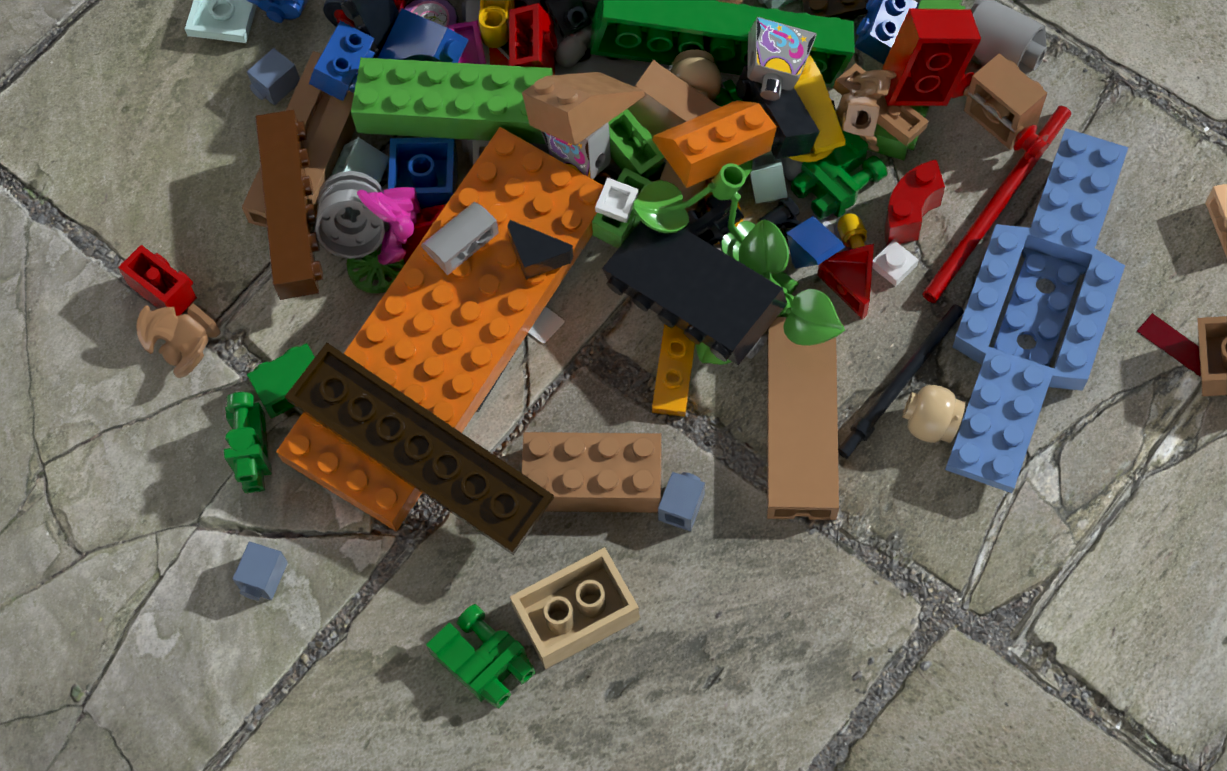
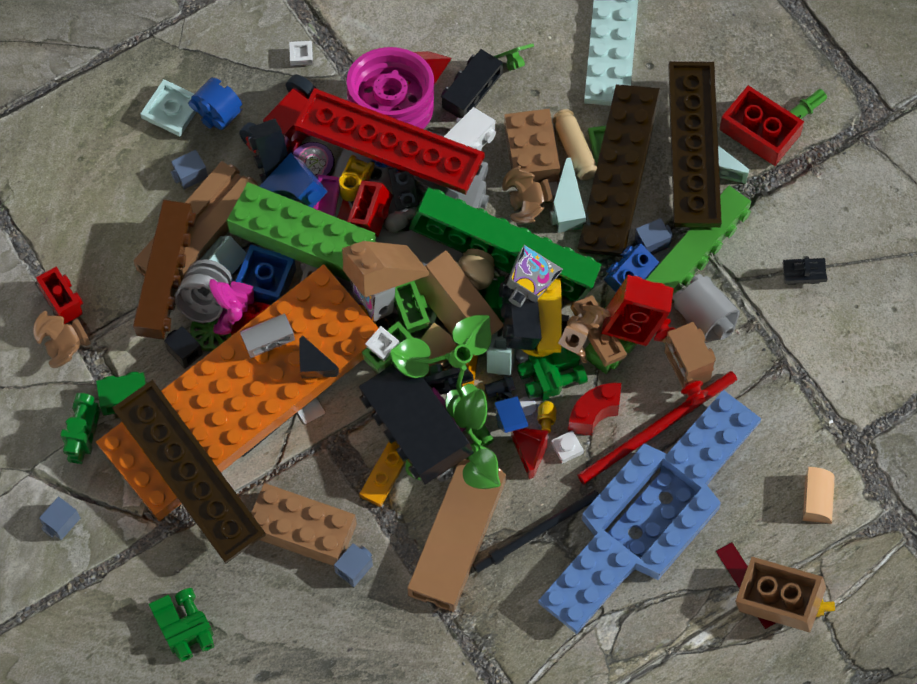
camera: 15 degrees right, 0 degrees up
(340, 61) = (235, 176): blue brick -> none
(346, 296) = (183, 347): none -> black brick
(575, 608) = (254, 613): tan brick -> none
(716, 139) = (466, 323): orange slope -> none
(933, 414) = (545, 562): tan piece -> none

